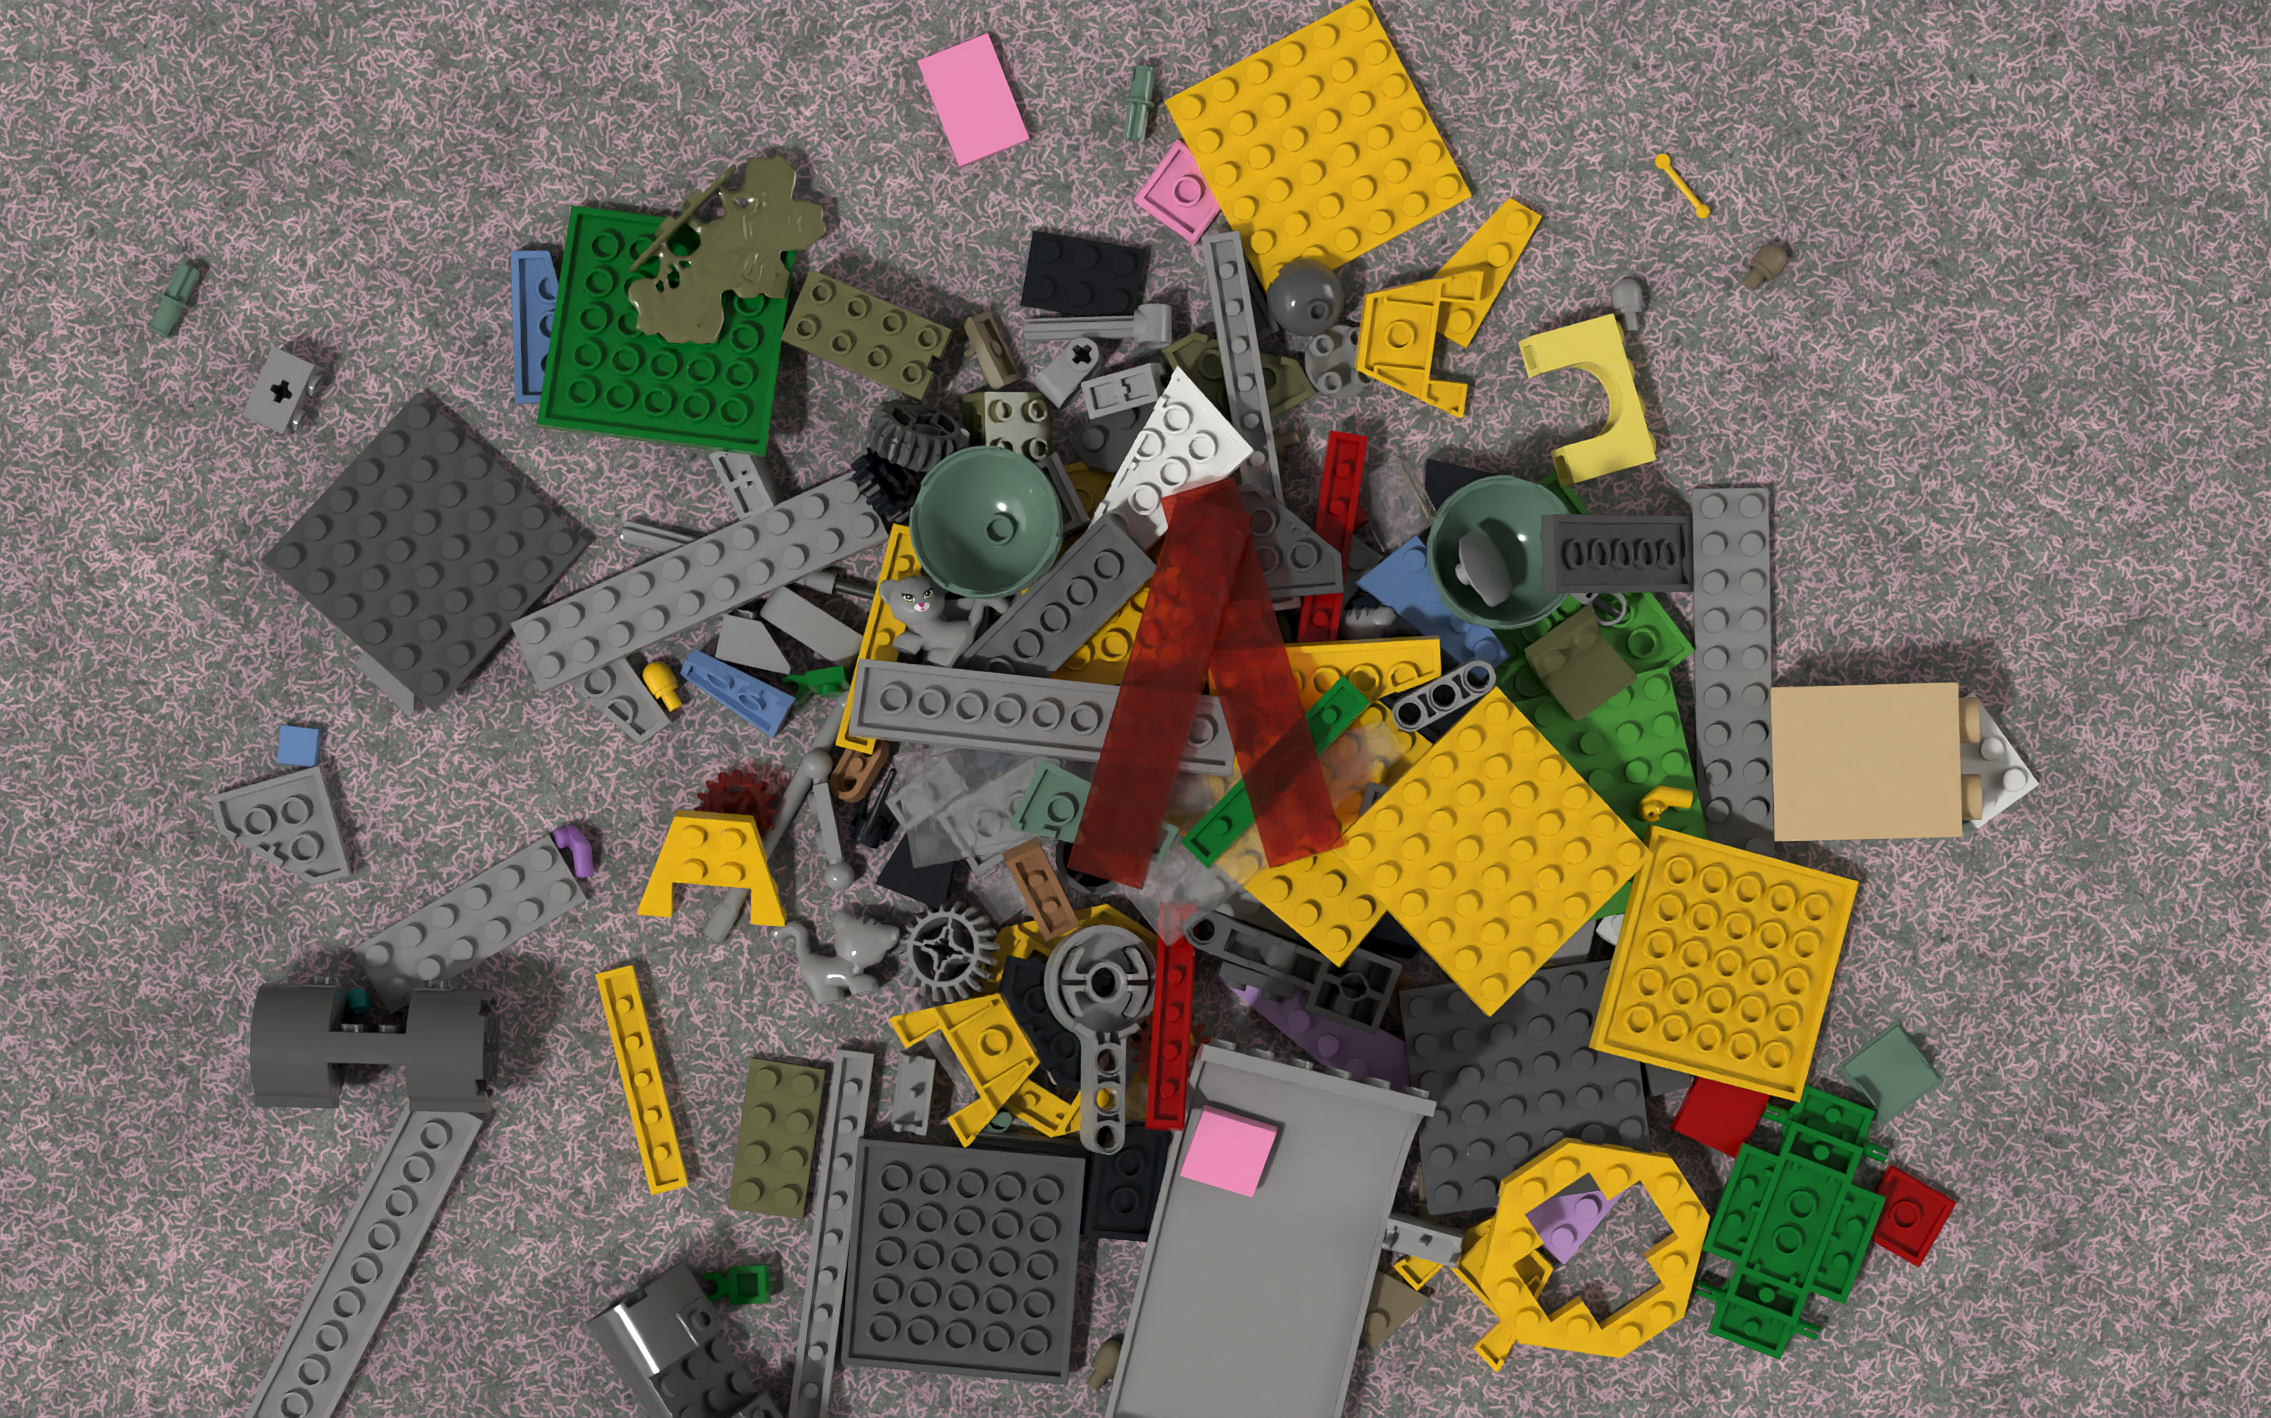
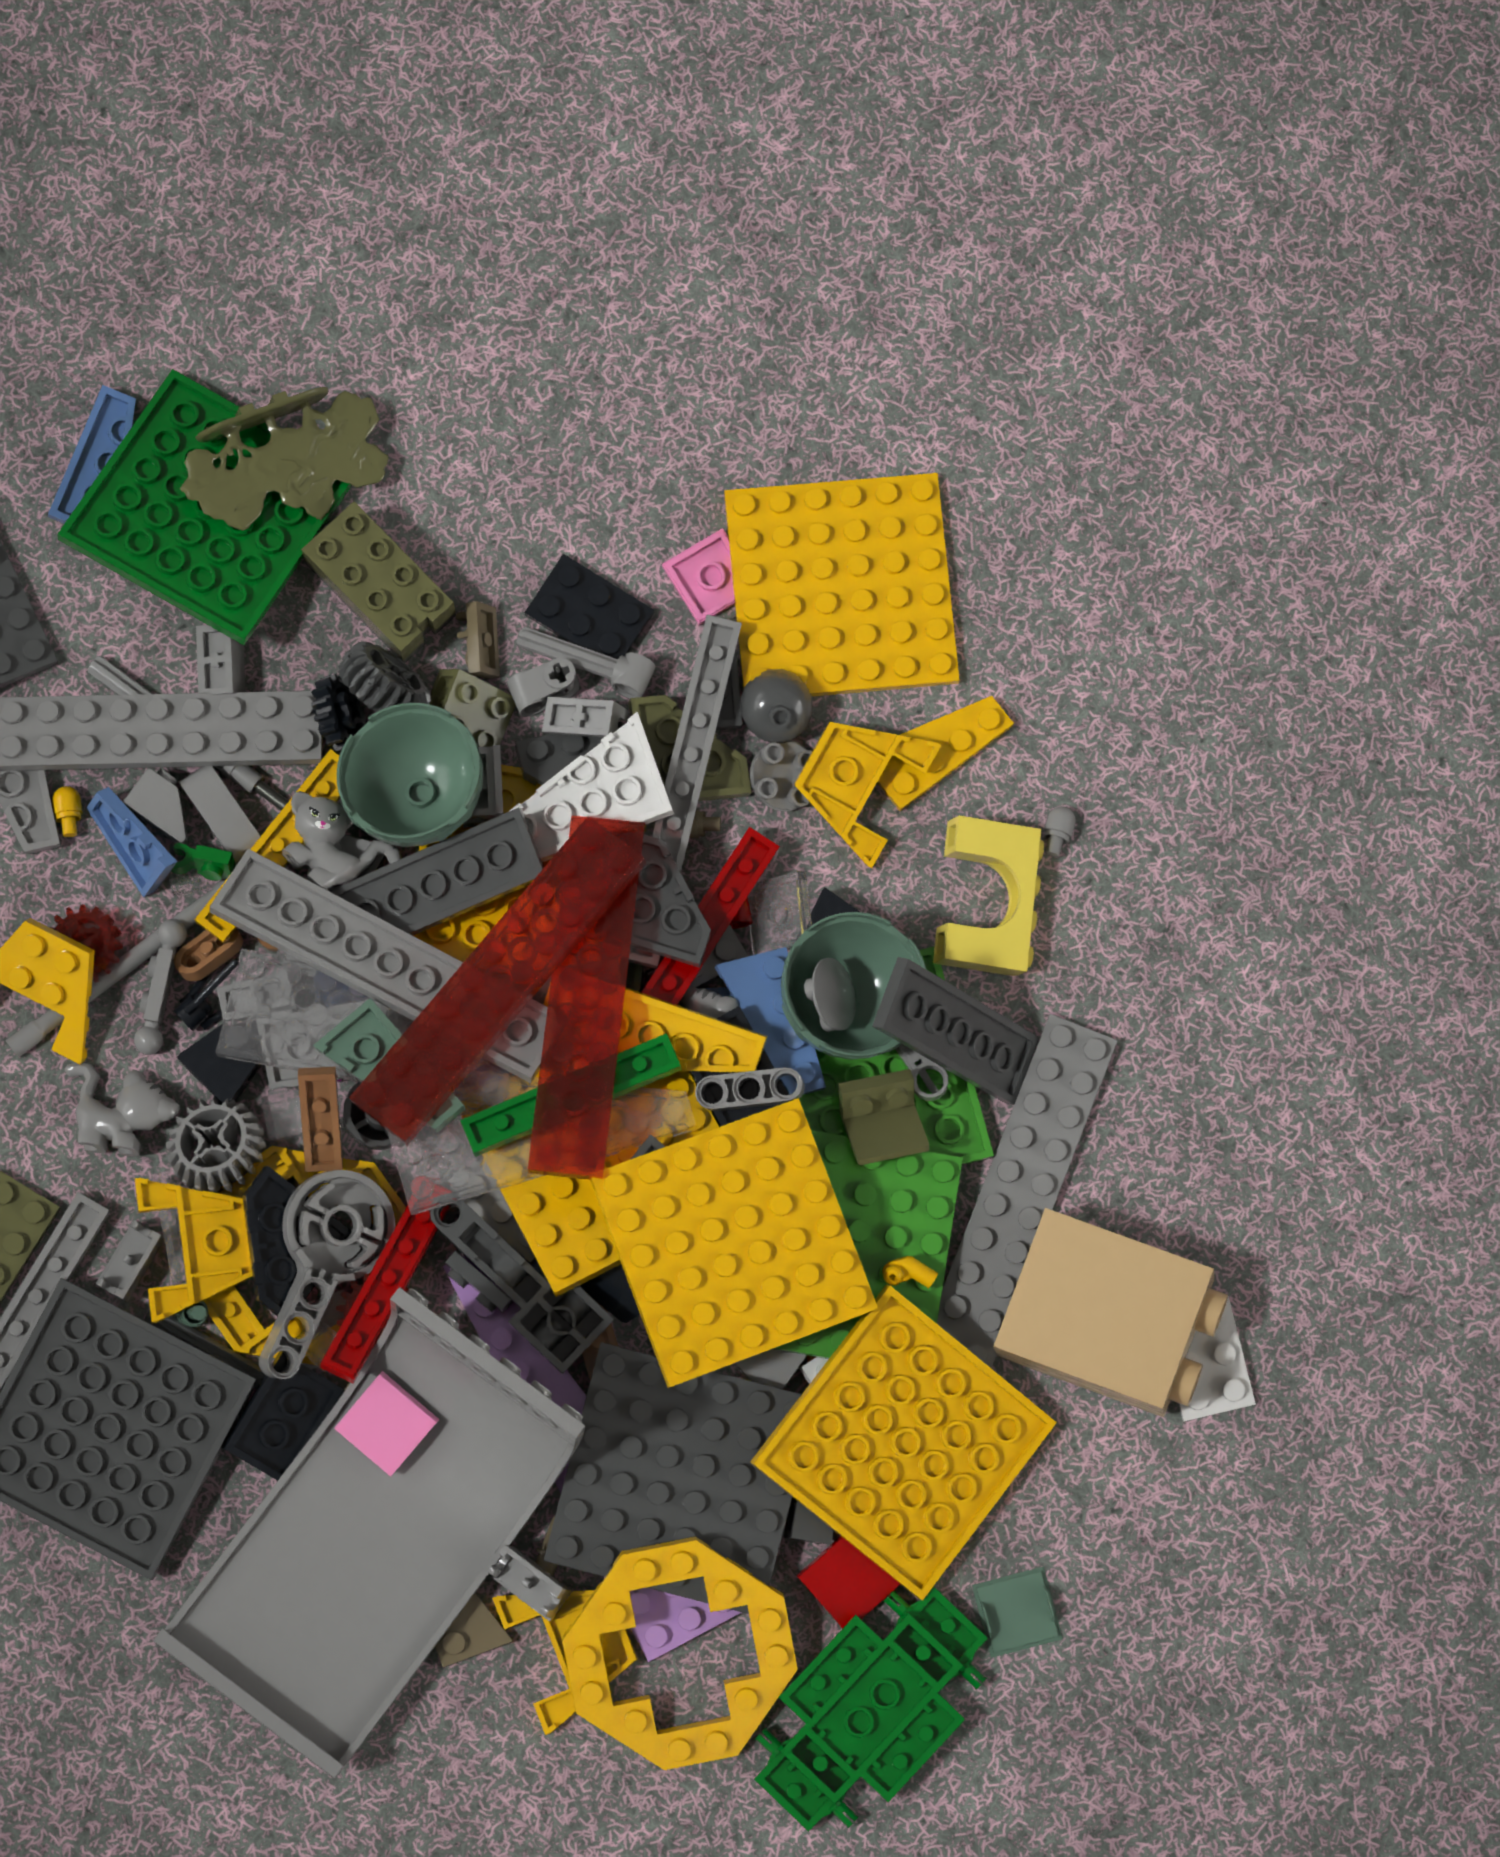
camera: 20 degrees right, 10 degrees down
(973, 100) = (559, 424): bright pink tile -> none
(1104, 1363) = (191, 1578): dark tan cylinder -> none
(1139, 103) = (702, 483): sand green axle -> none
(1662, 162) = (1139, 722): yellow hinge -> none
(1765, 266) = (1193, 846): dark tan cylinder -> none
(1909, 1216) = (980, 1749): red tile -> none

